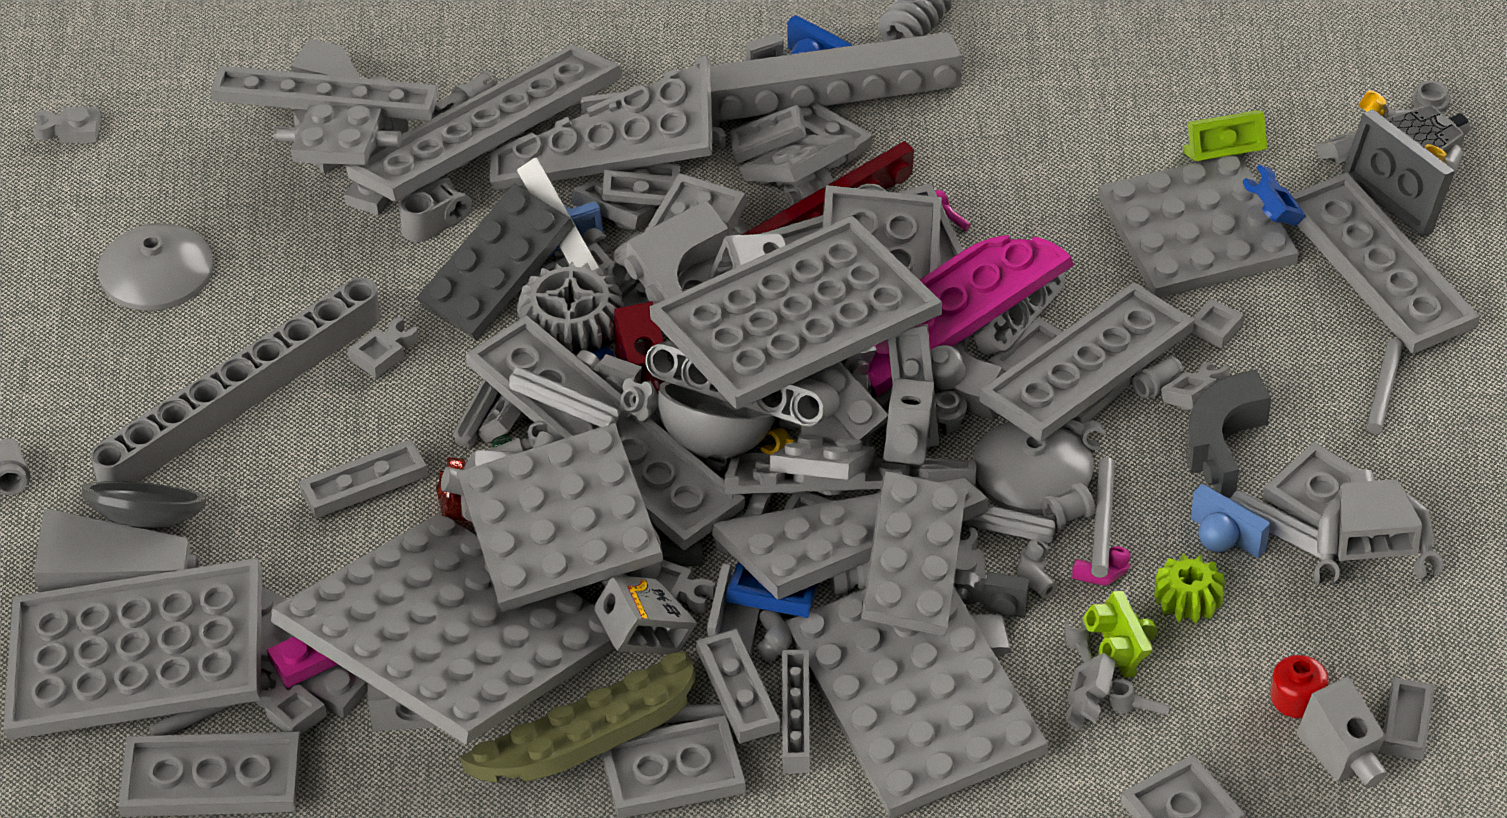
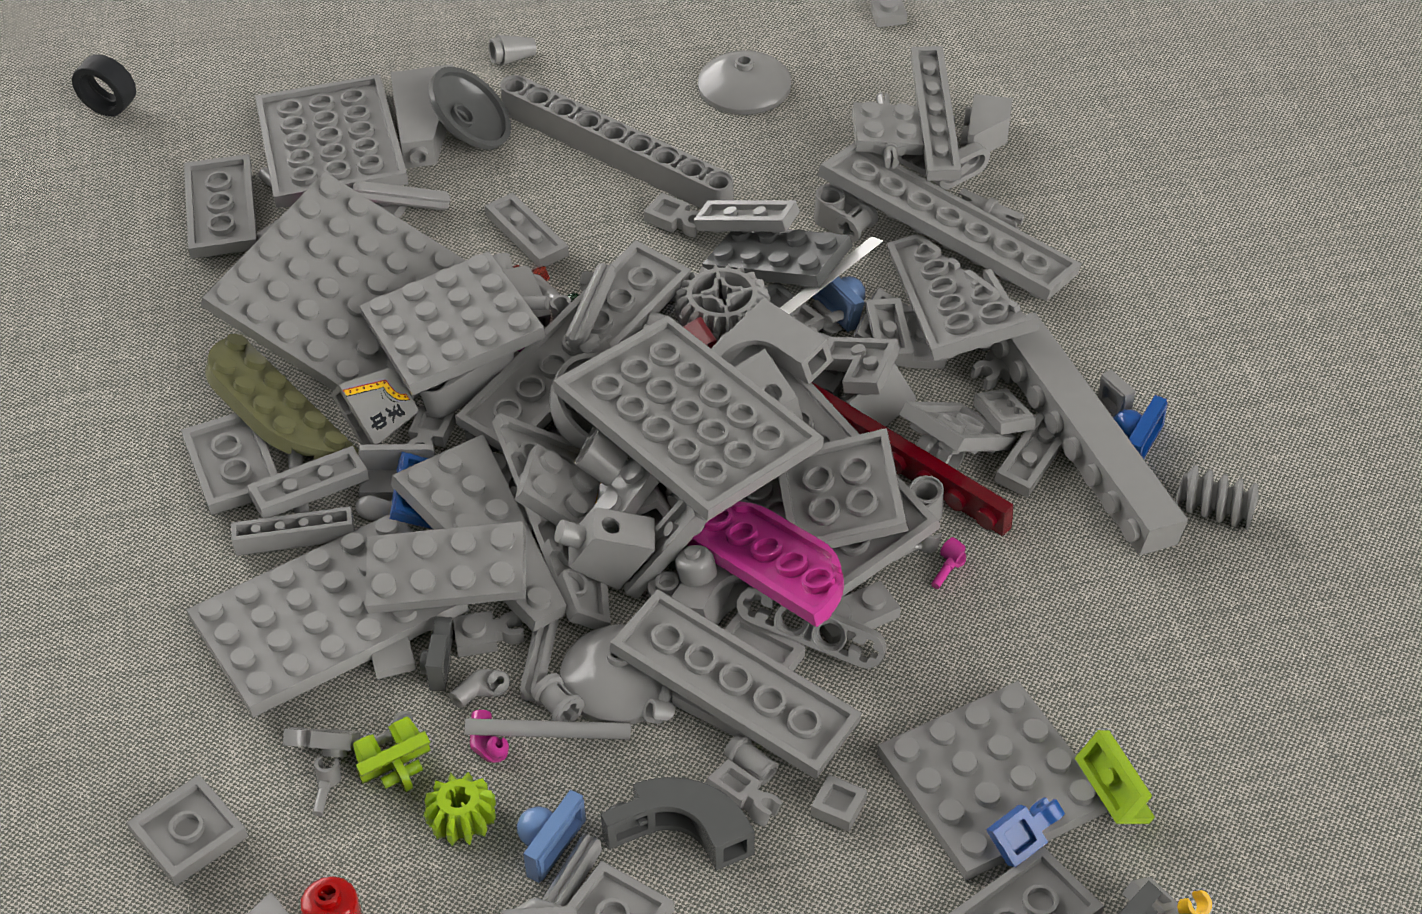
camera: 80 degrees right, 0 degrees up
(275, 577) = (403, 195): none -> light grey axle
(436, 270) = (747, 215): none -> light grey plate

